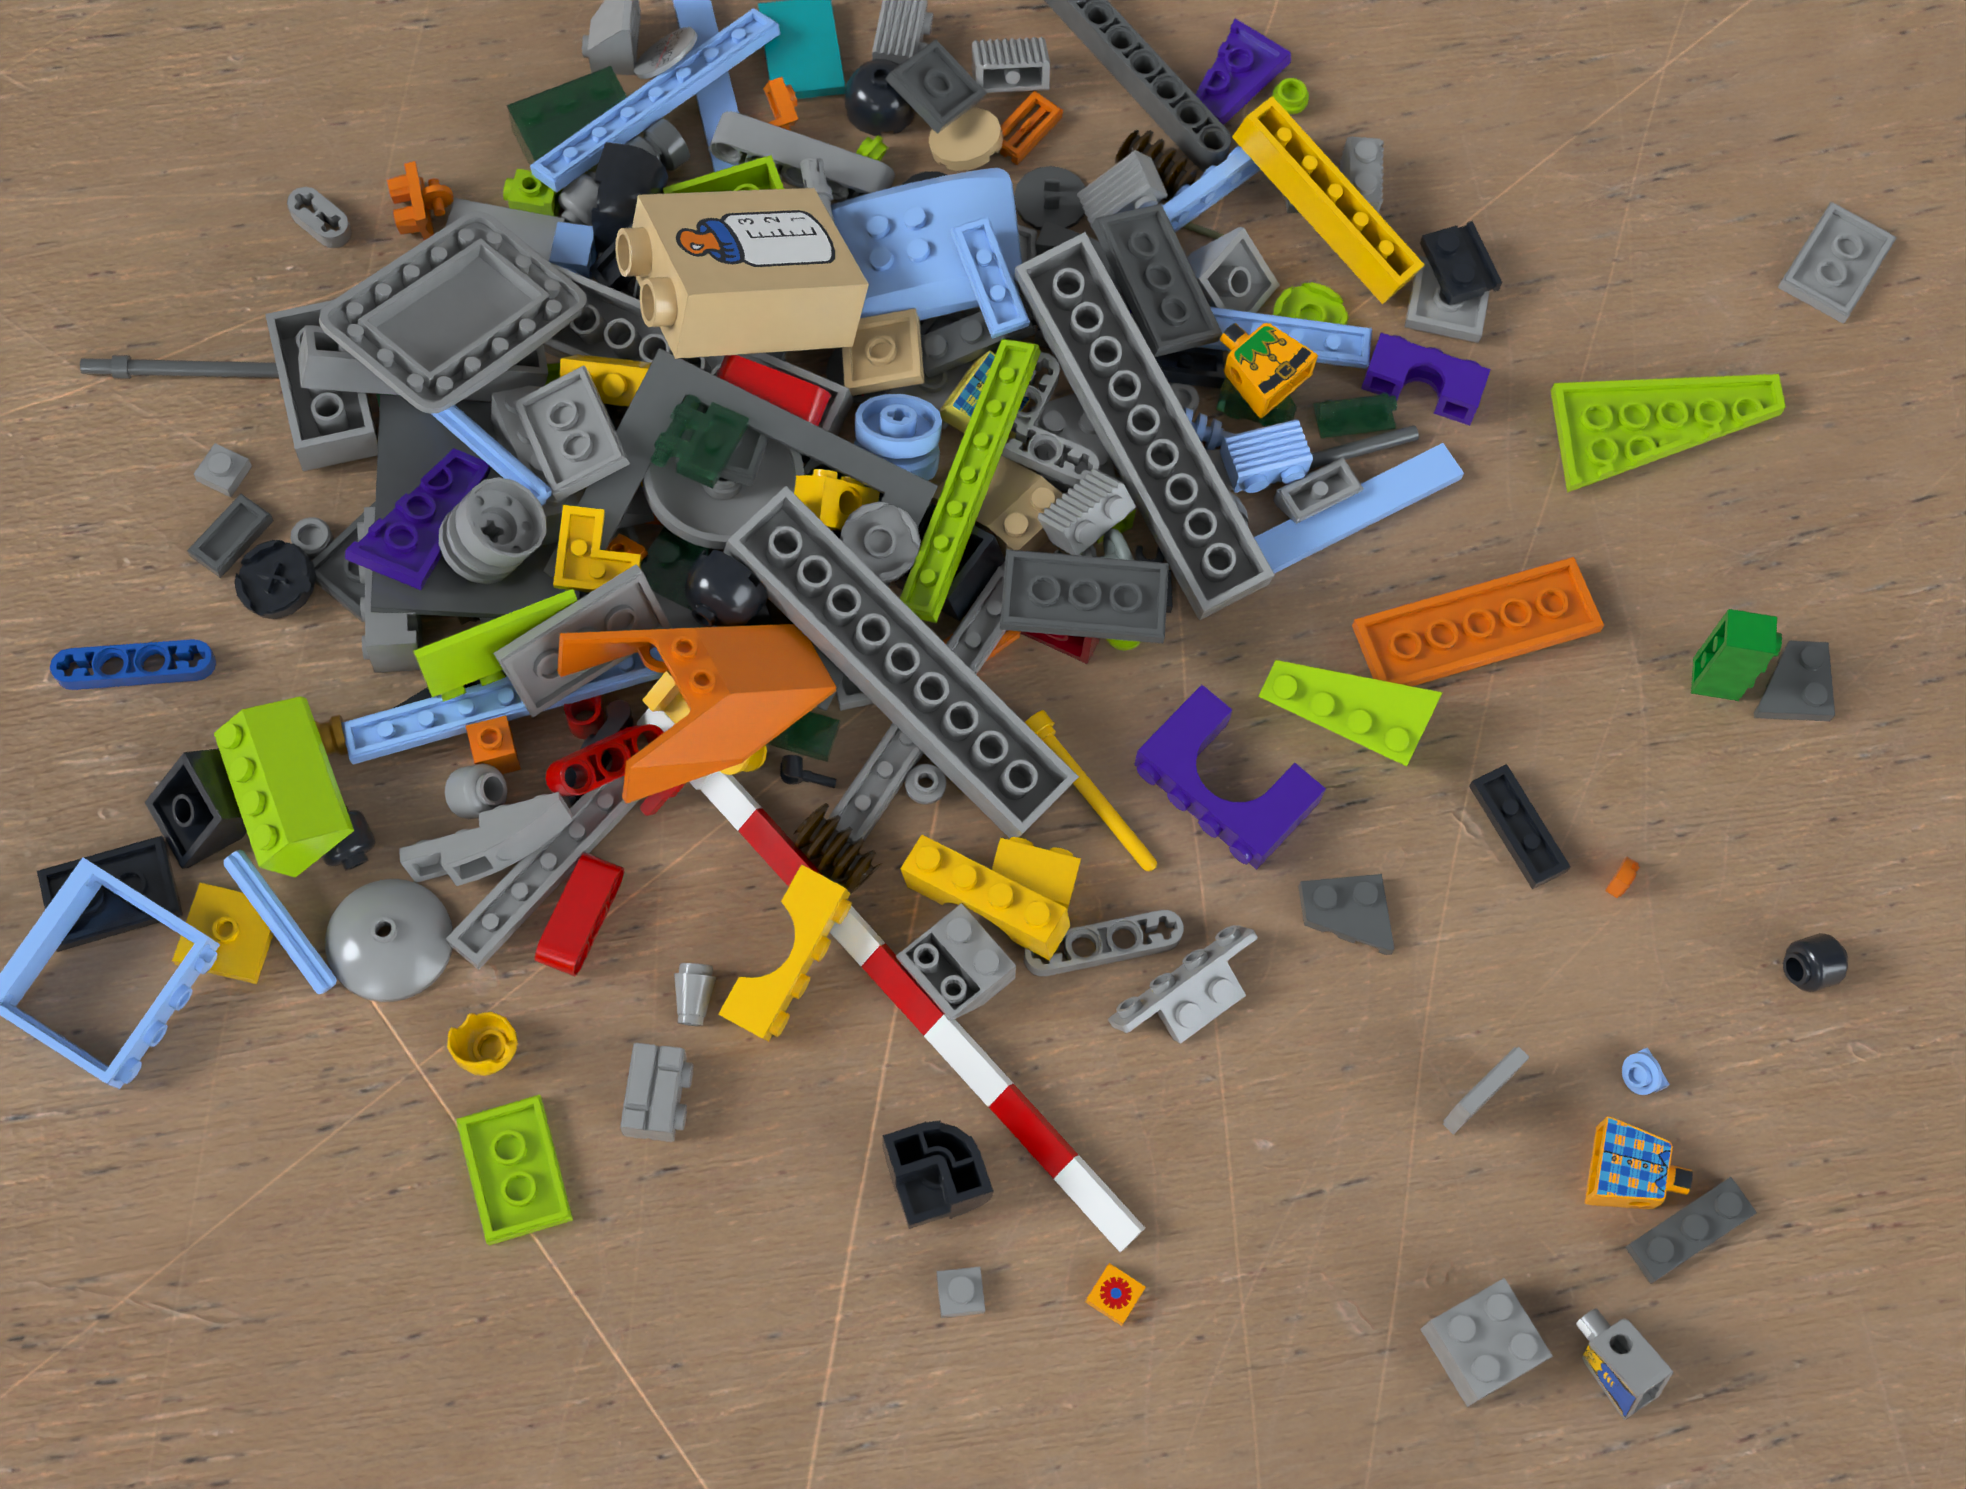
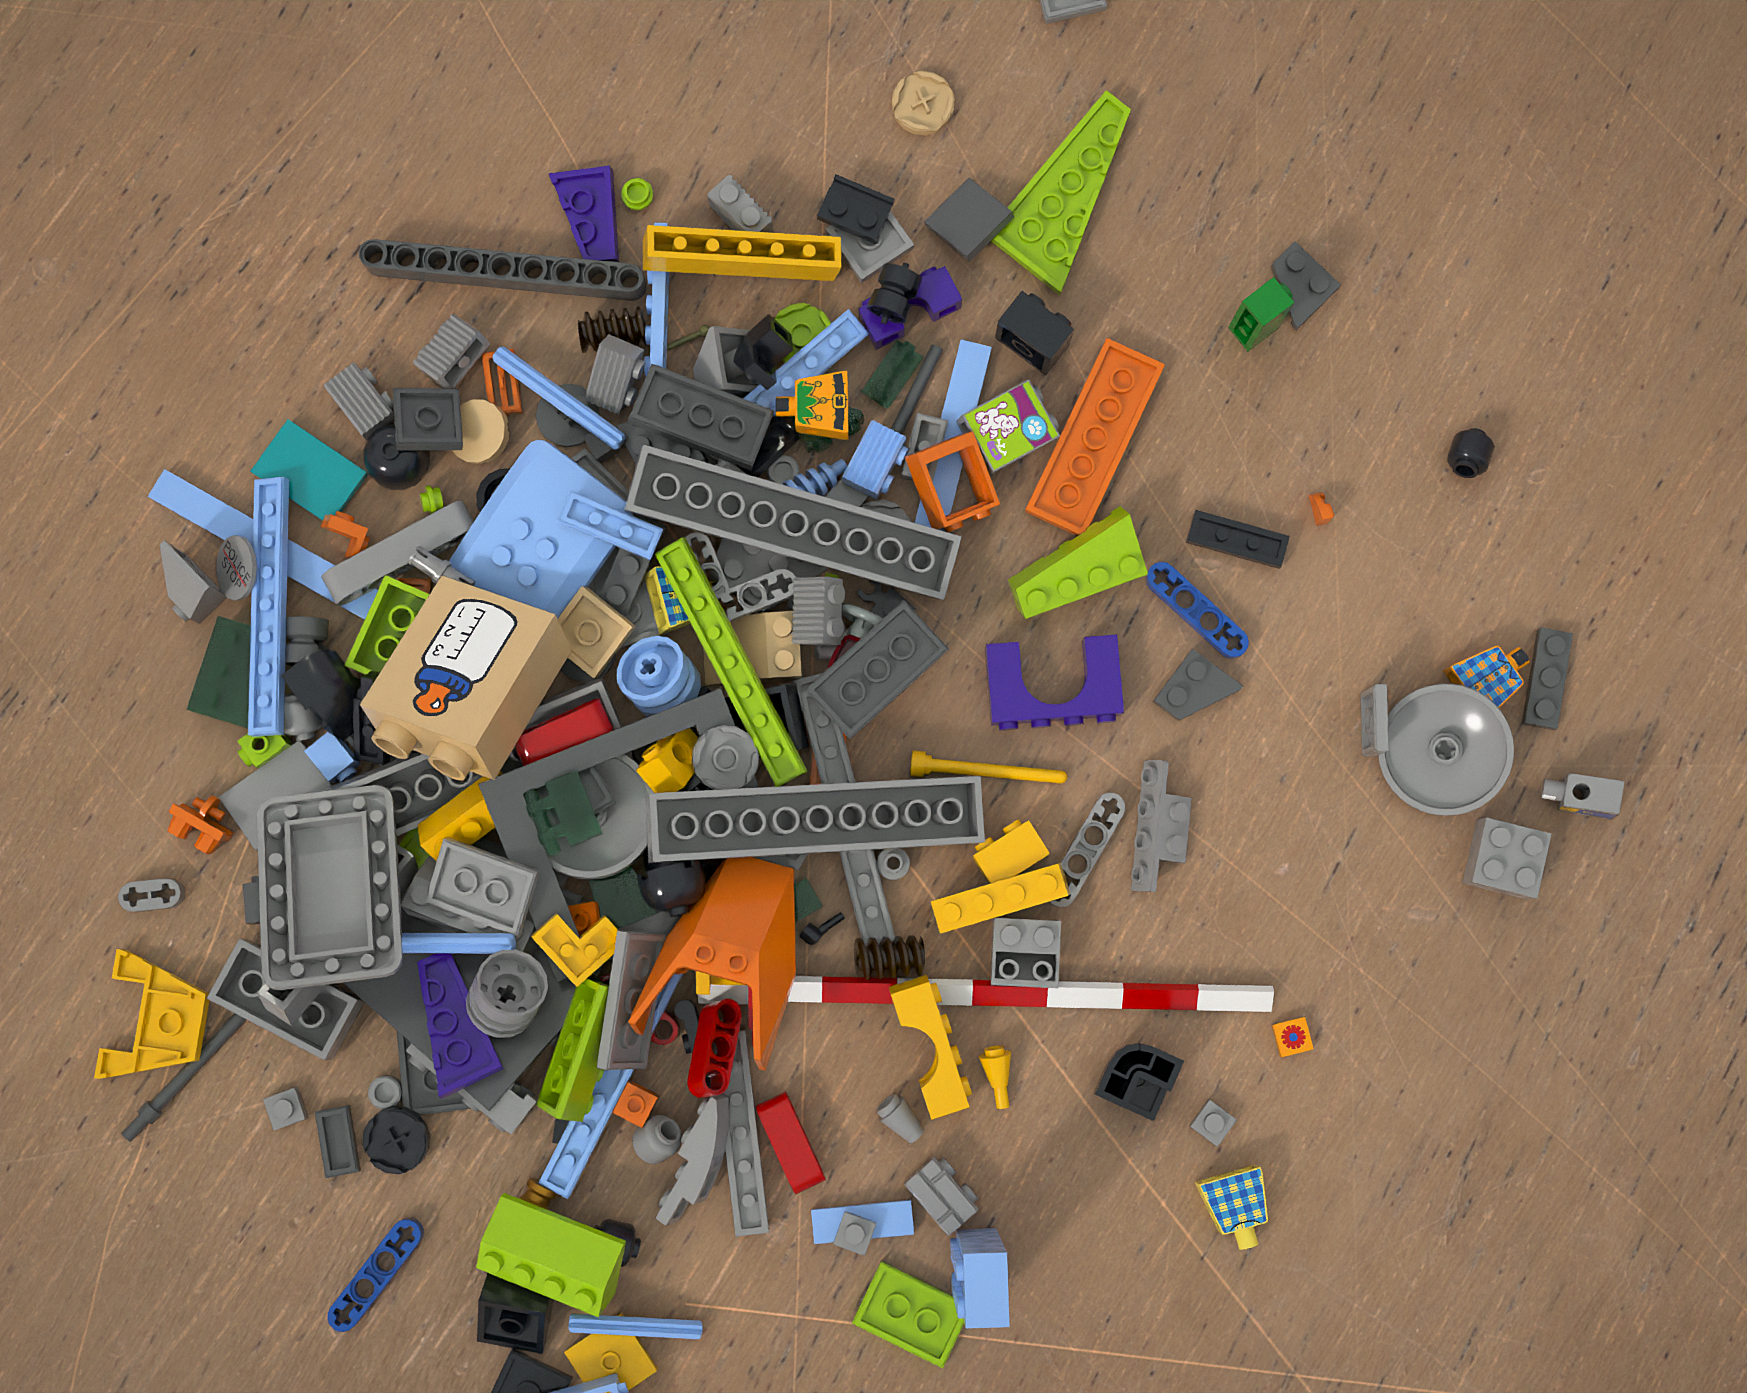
camera: 40 degrees left, 15 degrees up
(213, 316) = (168, 1021): none -> yellow wing
(395, 964) = (714, 1246): light grey dish -> none
(483, 1043) = (821, 1270): yellow hair -> none
(545, 1042) = (854, 1233): none -> light grey plate
(564, 1046) = (891, 1219): none -> light blue tile
(605, 1156) = (980, 1278): none -> light blue brick
(823, 1039) = (997, 1067): none -> yellow cone
(903, 1381) = (1236, 1203): none -> torso
(1057, 167) = (559, 398): none -> light blue axle
(1265, 287) = (763, 349): none -> black brick
(1333, 497) = (977, 474): none -> orange window
(1410, 542) = (1010, 426): none -> brick
(1425, 849) = (1200, 606): none -> blue beam
(1429, 340) = (896, 289): none -> black wheel
(1513, 488) = (1034, 332): none -> black brick
(1528, 1184) = (1447, 749): none -> light grey dish
(1550, 360) = (969, 219): none -> dark grey tile
(1605, 247) = (923, 103): none -> tan tile
(1643, 1073) = (1440, 615): light blue plate -> none

